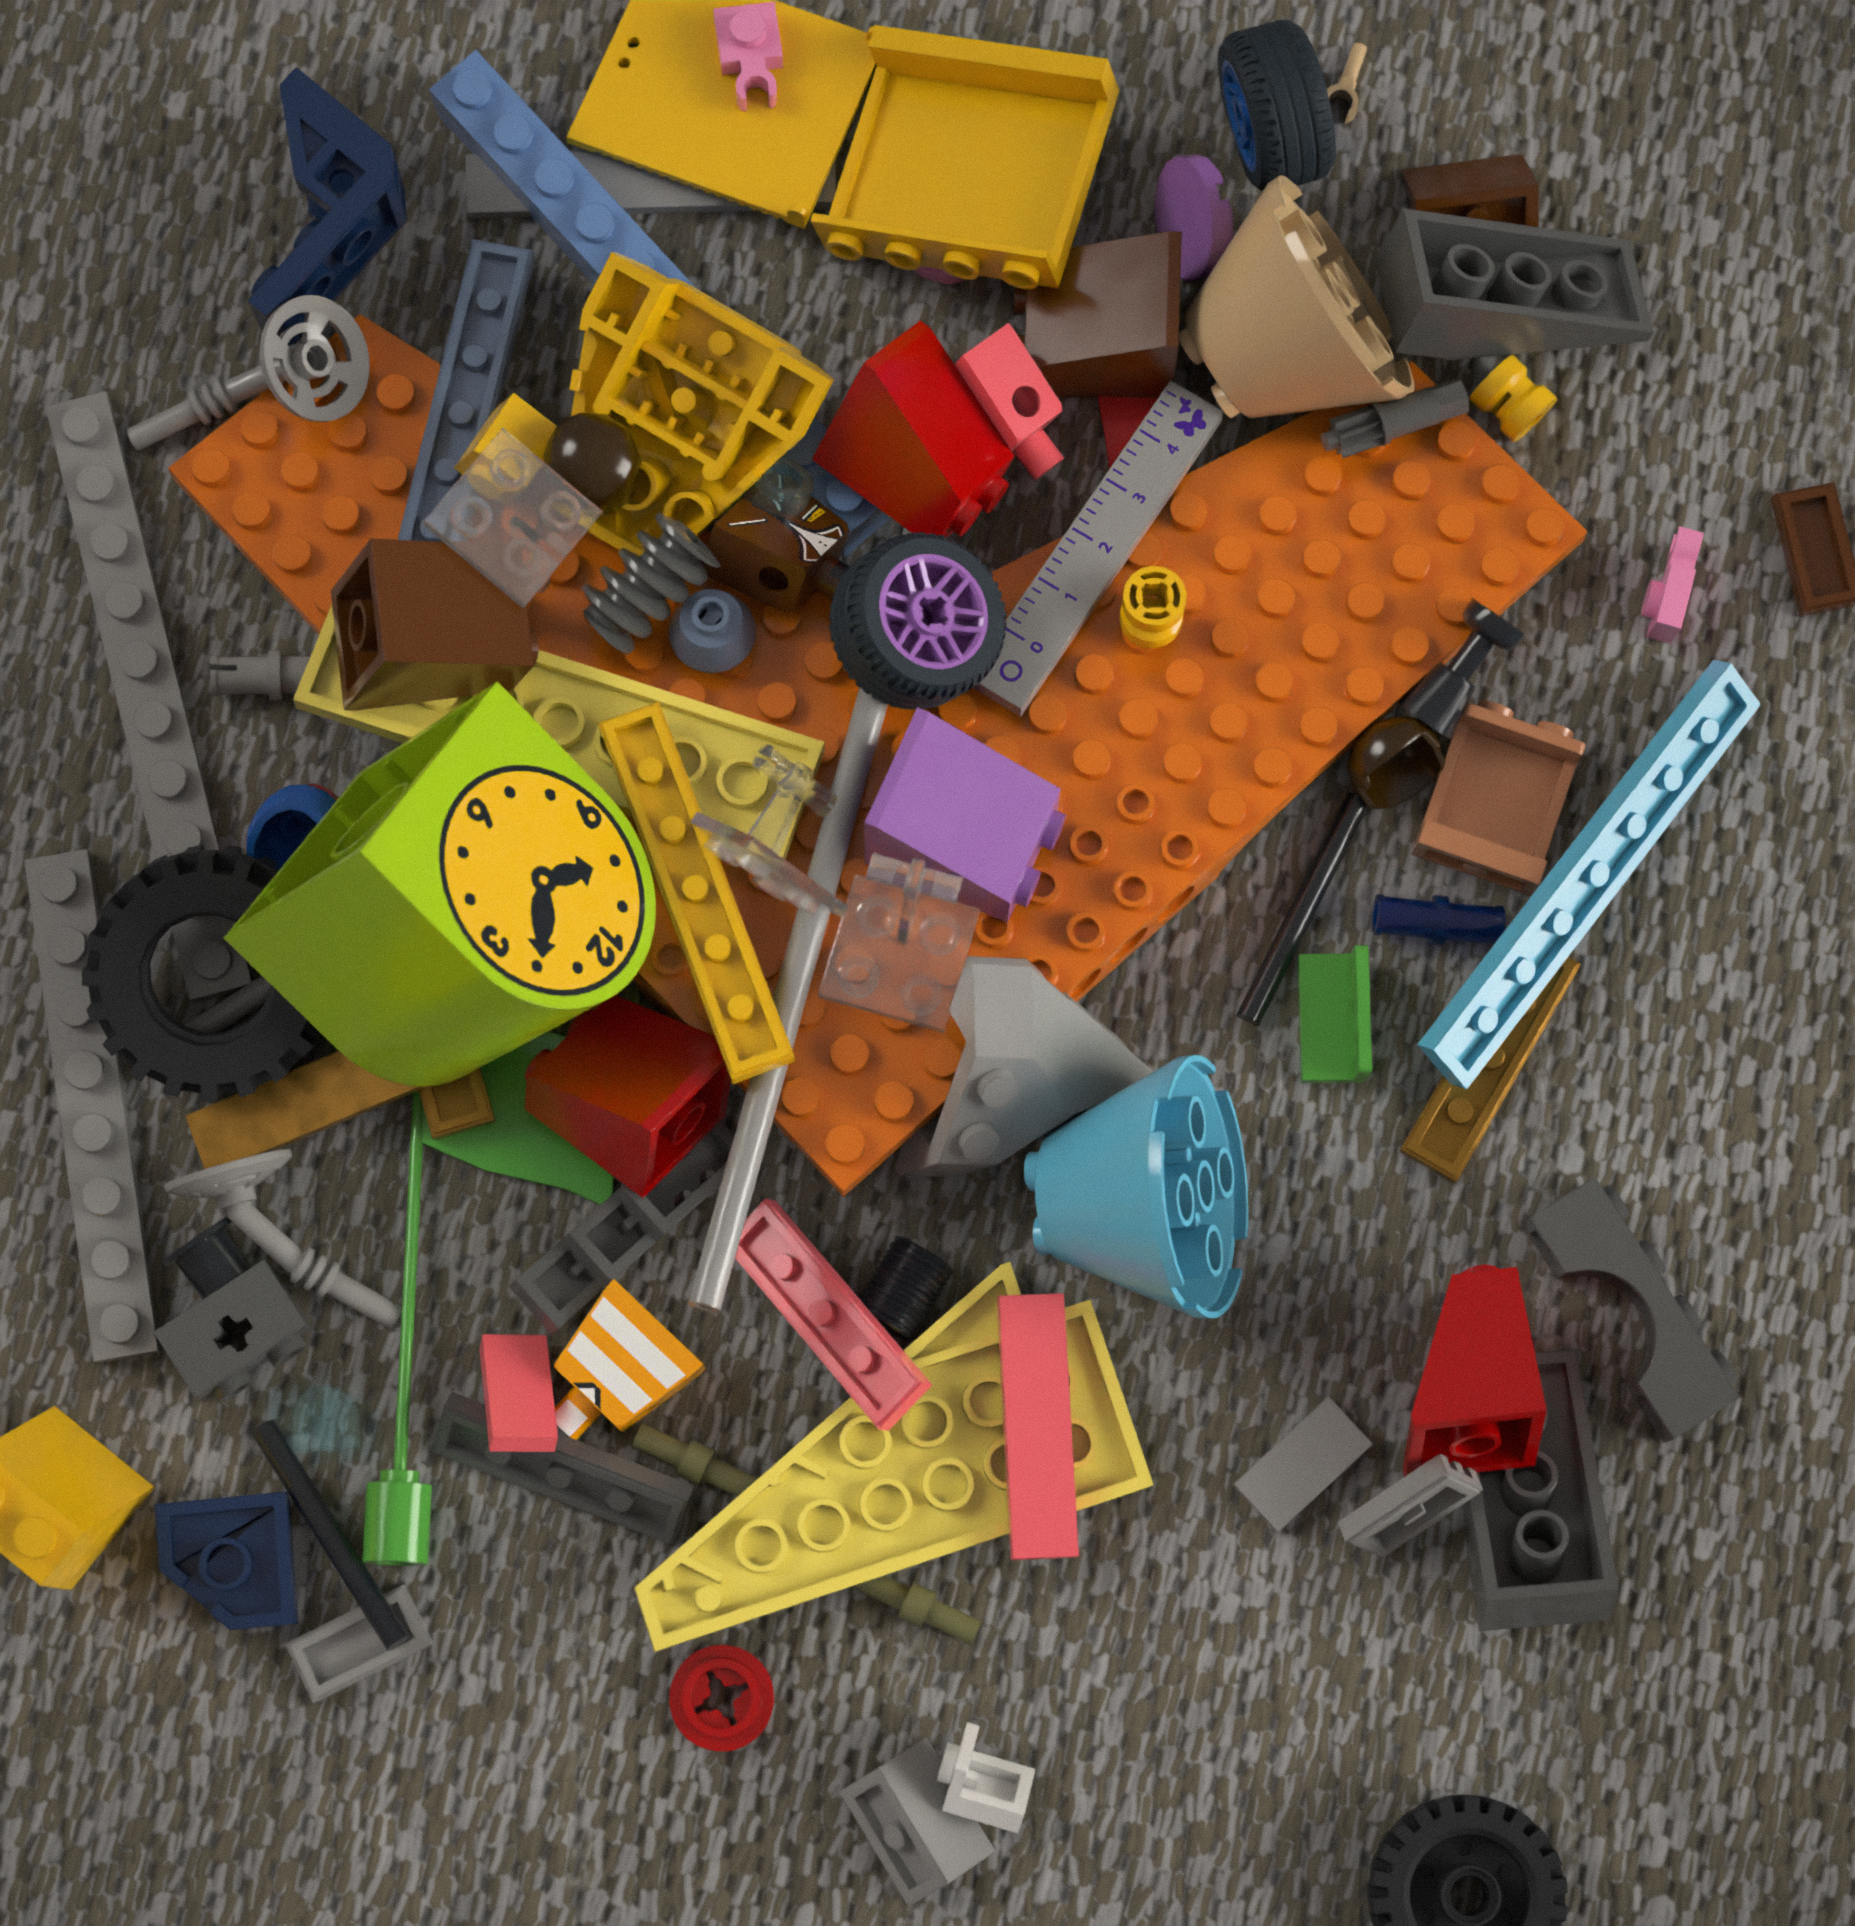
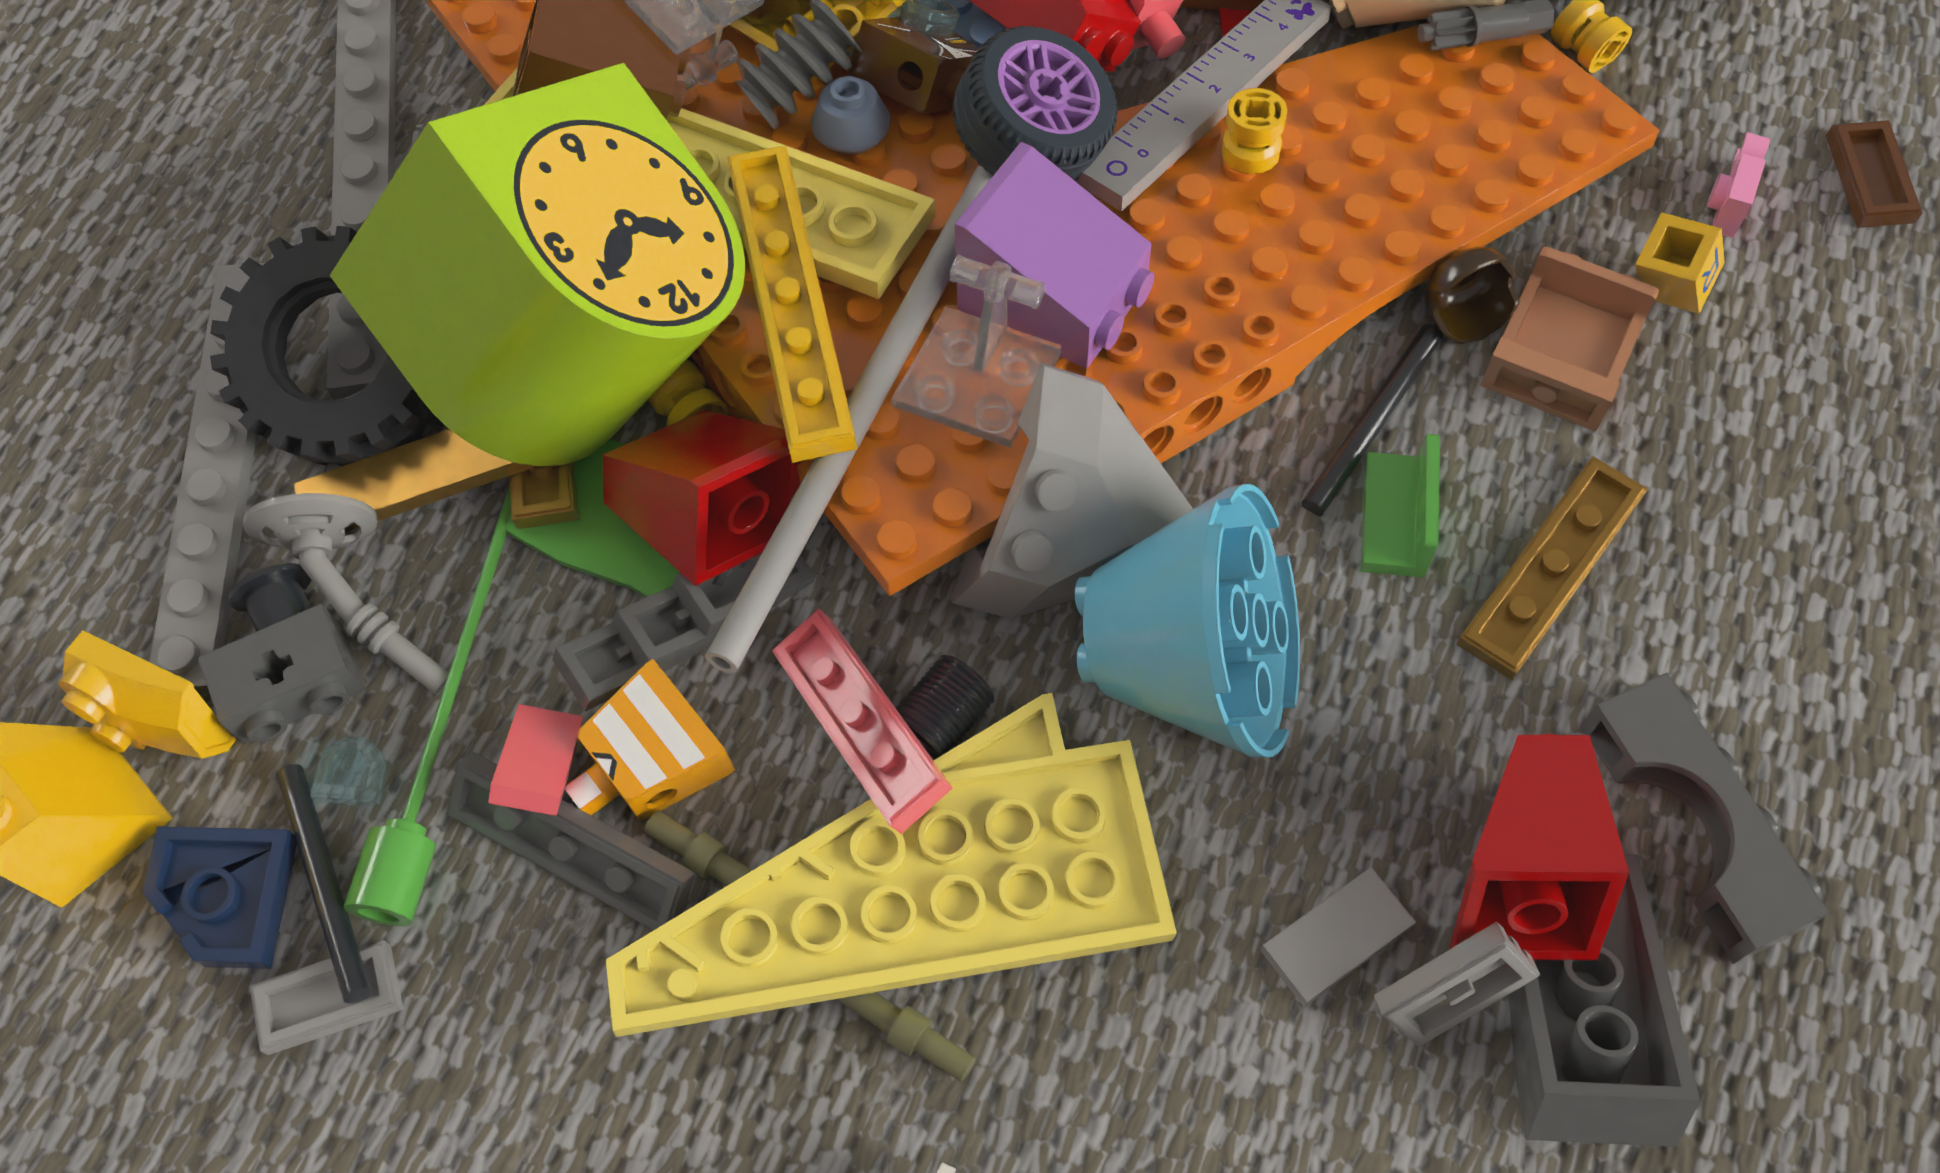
camera: 15 degrees right, 15 degrees down
(106, 1388) = (137, 702): none -> yellow slope
(692, 1686) = (657, 1088): red gear -> none
(761, 846) = (872, 280): clear plate -> none
(1037, 1427) = (1059, 857): coral tile -> none
(1437, 919) = (1507, 436): clear blue pin -> none
(1447, 689) = (1527, 230): black piece -> none
(1589, 874) = (1654, 409): medium azure plate -> none
(1608, 704) = (1681, 261): none -> yellow brick

